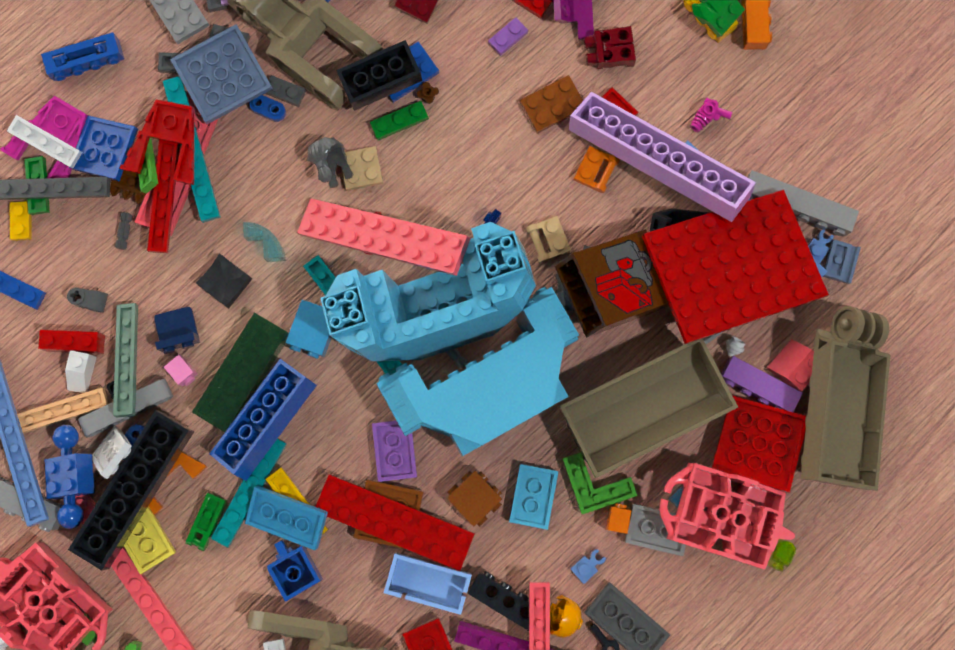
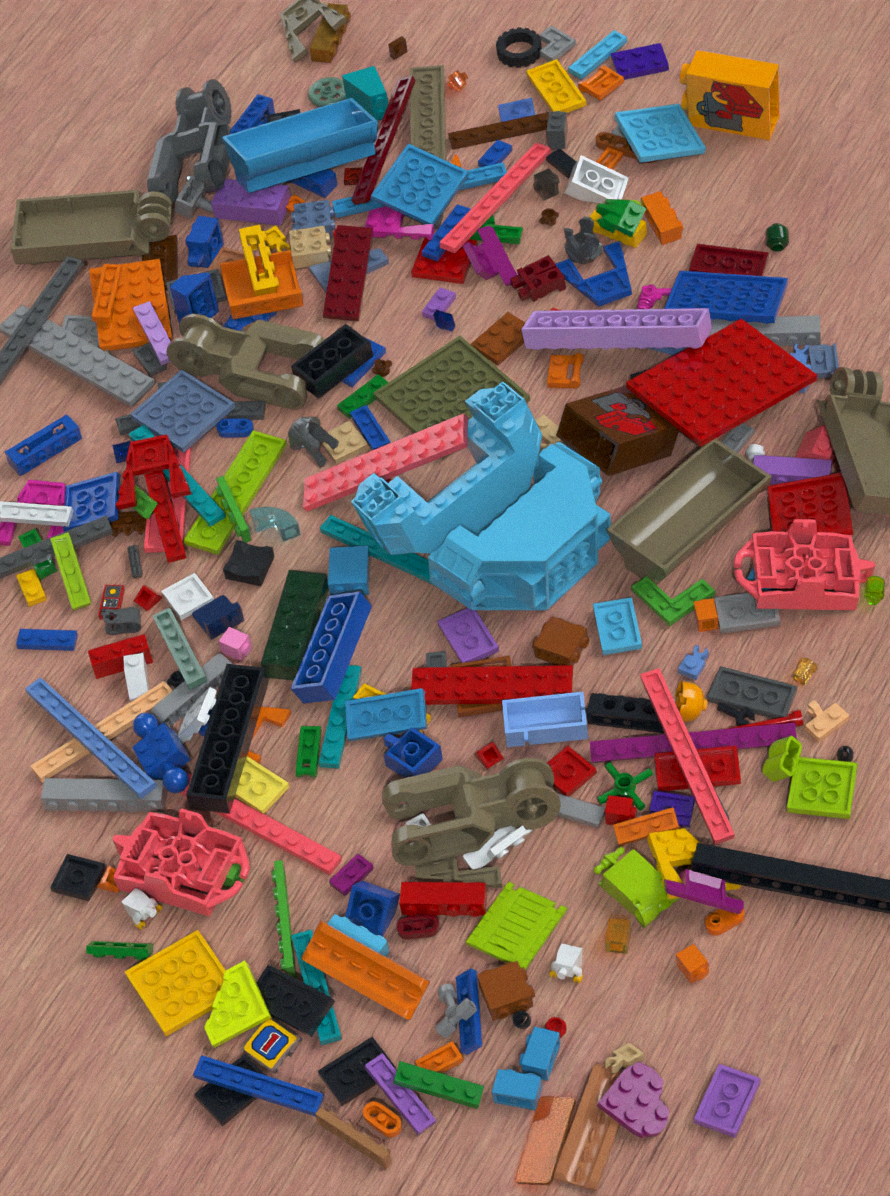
camera: 10 degrees left, 30 degrees down
(55, 226) = (71, 571): none -> lime plate
(87, 269) = (111, 599): none -> tile
(122, 278) = (147, 598): none -> red slope
(152, 93) = (121, 451): none -> clear blue plate
(157, 294) = (187, 596): none -> white plate
(227, 224) = (235, 515): none -> bright green plate
(244, 186) = (244, 481): none -> lime plate
(355, 468) = (436, 659): none -> dark grey plate
(365, 591) = (489, 755): none -> red slope
(390, 165) = (369, 427): none -> blue plate
(479, 157) = (441, 385): none -> olive plate
(505, 61) = (444, 320): none -> clear blue plate
(671, 83) = (605, 286): none -> blue wing
(676, 16) = (584, 245): none -> dark grey piece
(683, 622) = (805, 669): none -> clear yellow bush
(780, 150) = (729, 295): none -> blue plate
(798, 103) = (728, 260): none -> dark red plate
(855, 91) = (777, 237): none -> dark green head

